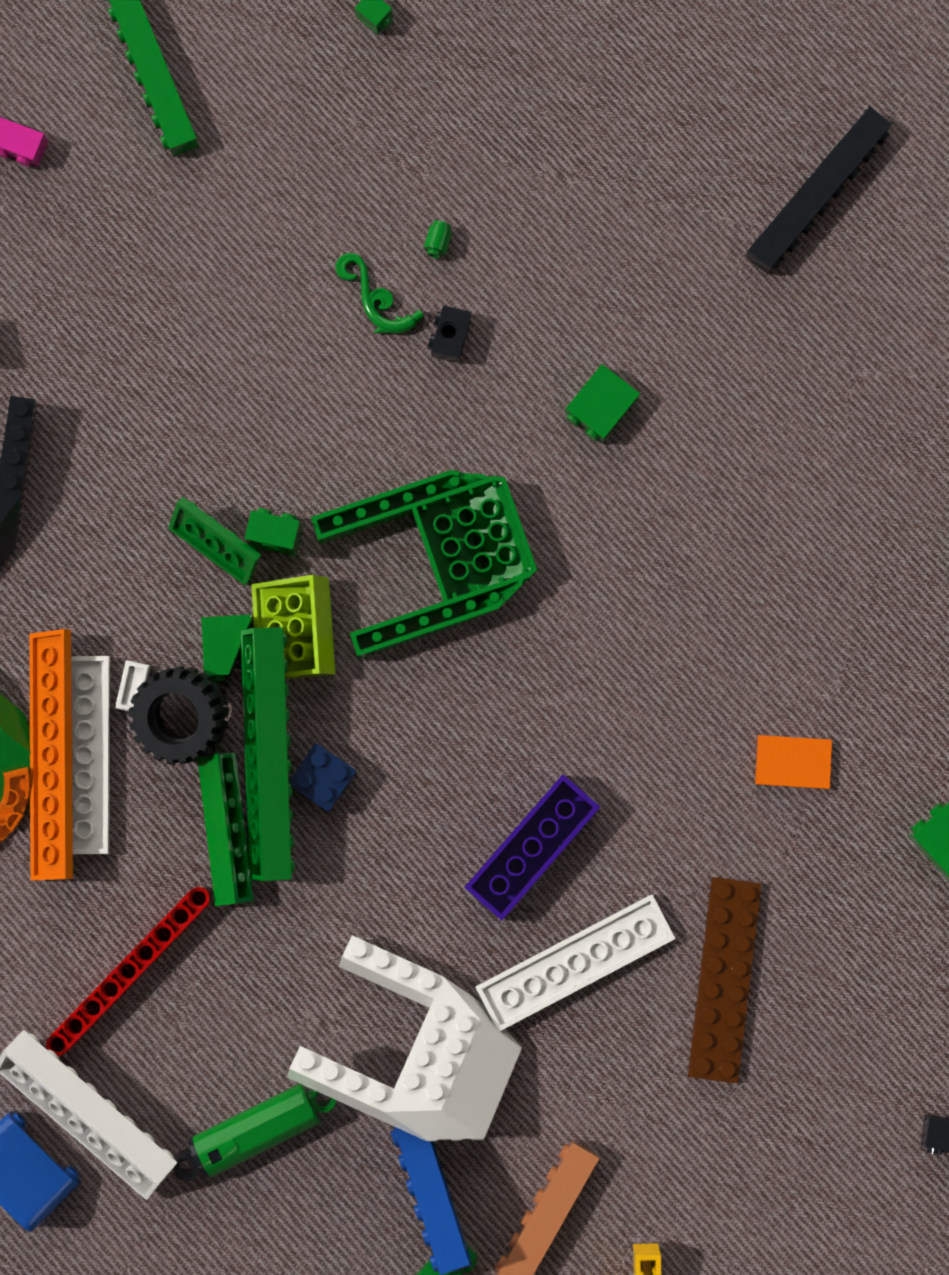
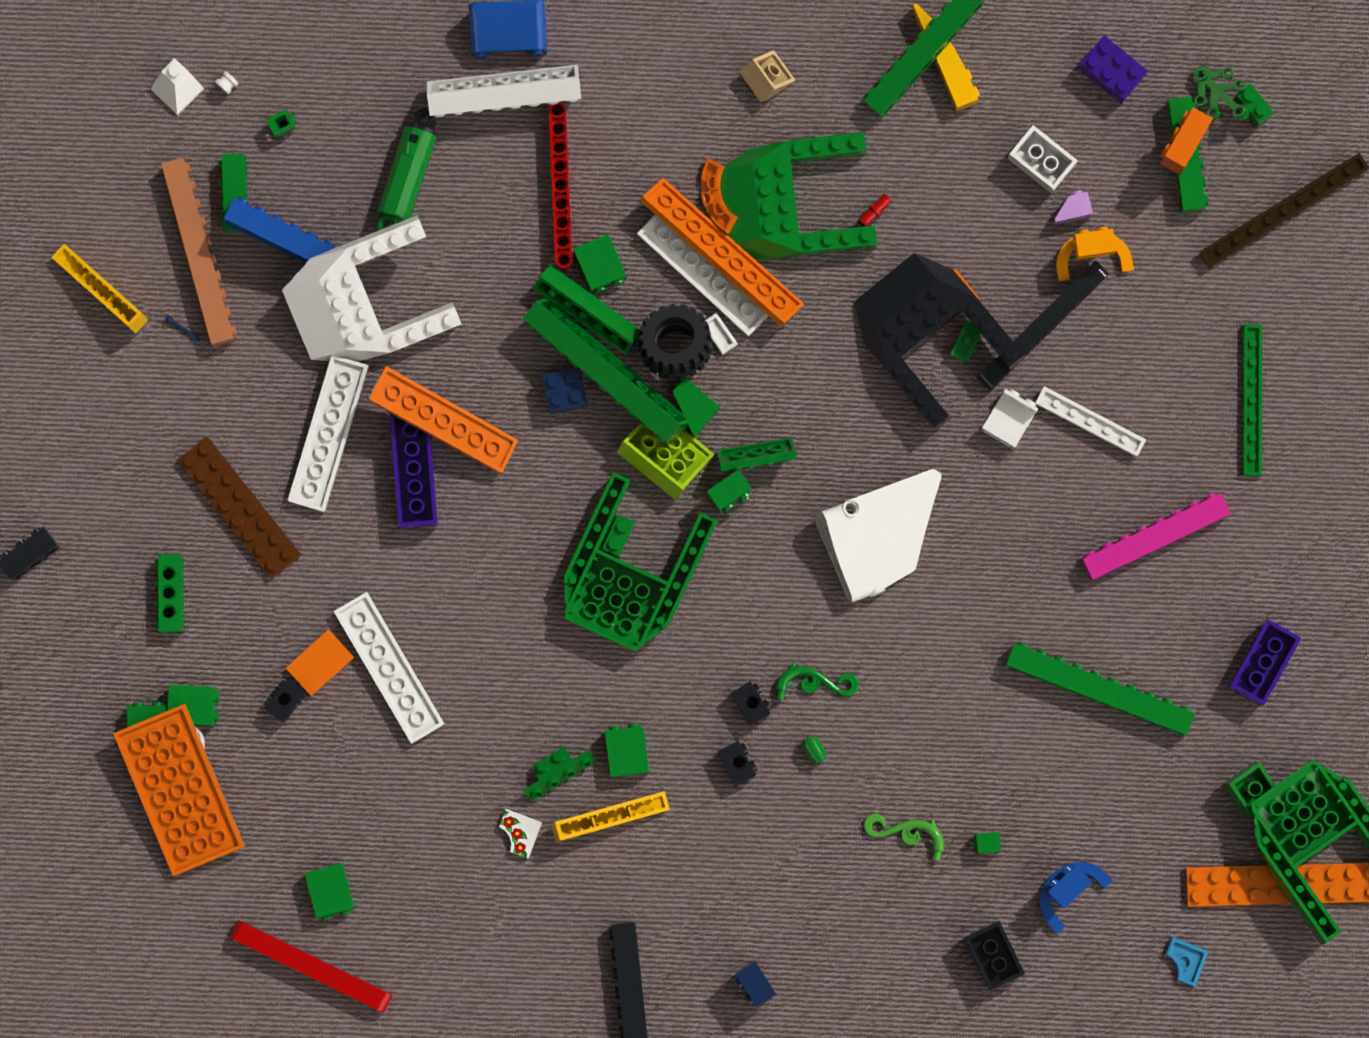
camera: 135 degrees right, 0 degrees up
(170, 860) = (600, 264): none -> green brick
(183, 359) = (881, 536): none -> white panel
(411, 599) = (618, 535): none -> green plate
(429, 97) = (931, 828): none -> bright green plant
(461, 864) = (442, 420): none -> orange plate
(515, 310) = (728, 755): none -> black brick
(605, 1182) = (195, 337): none -> dark blue hinge
(677, 363) = (609, 816): none -> yellow slope
(680, 453) = (555, 770): none -> green bracket
(699, 93) = (755, 984): none -> dark blue brick
(736, 693) = (389, 668): none -> white plate
(765, 430) = (521, 831): none -> white tile
(872, 752) = (295, 694): none -> black brick
(888, 931) = (176, 622): none -> green brick

